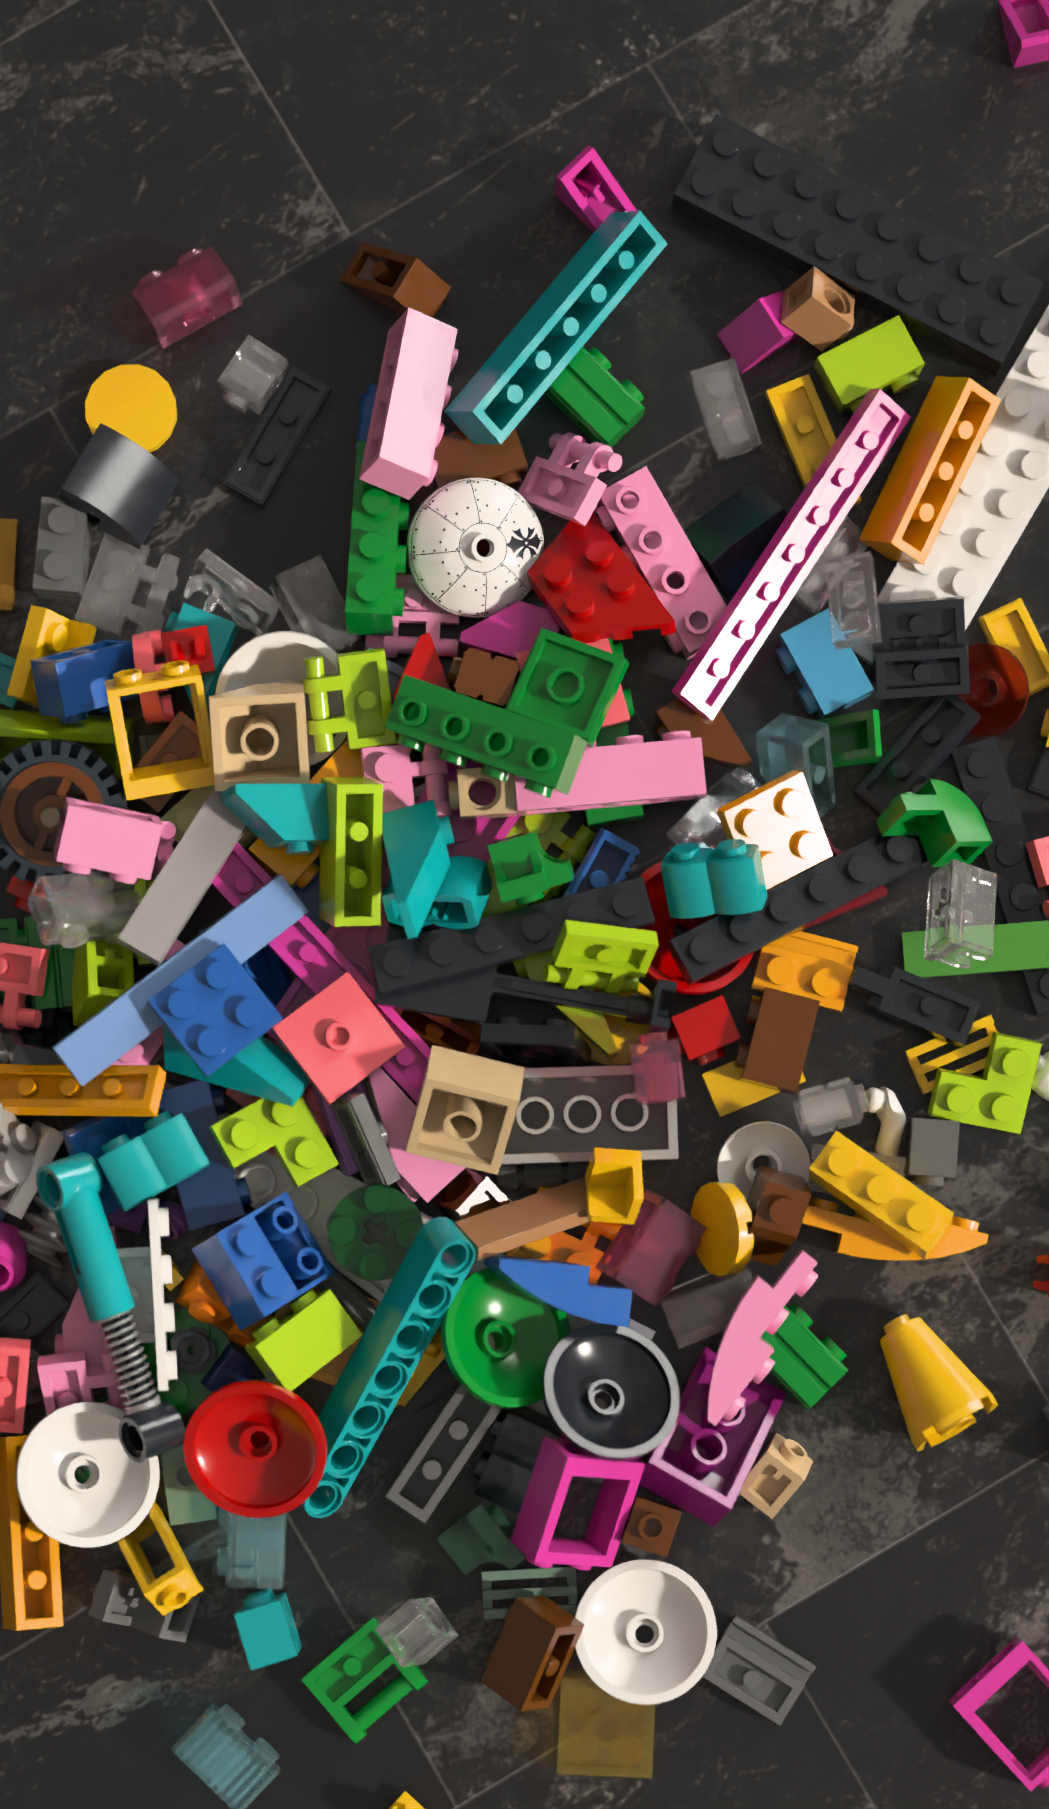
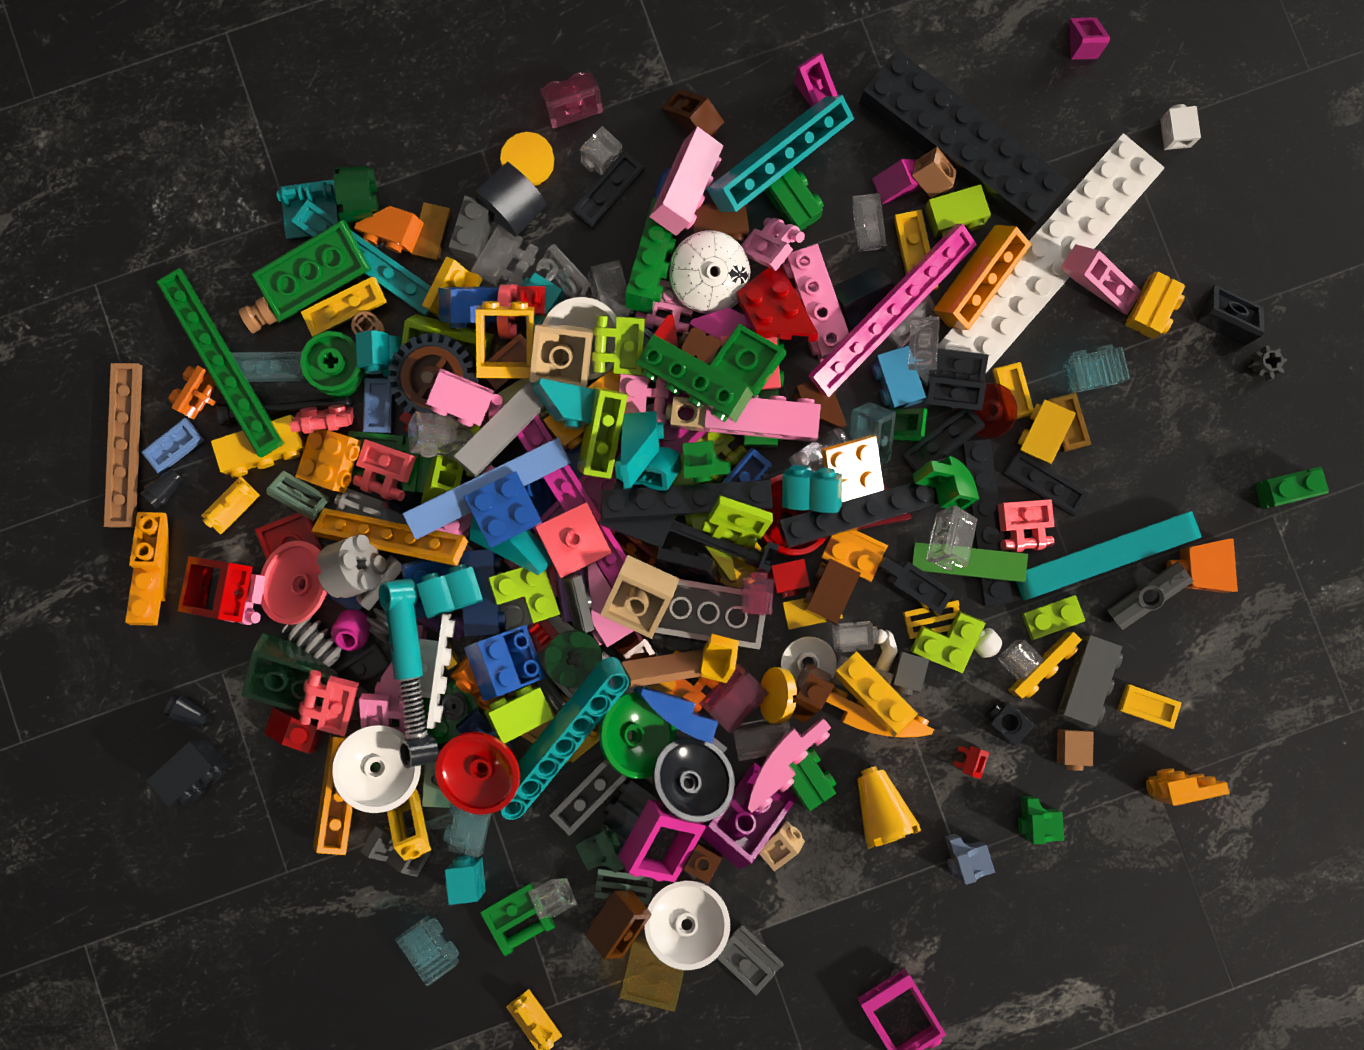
camera: 15 degrees right, 0 degrees up
(315, 1203) = (542, 634): none -> red tile

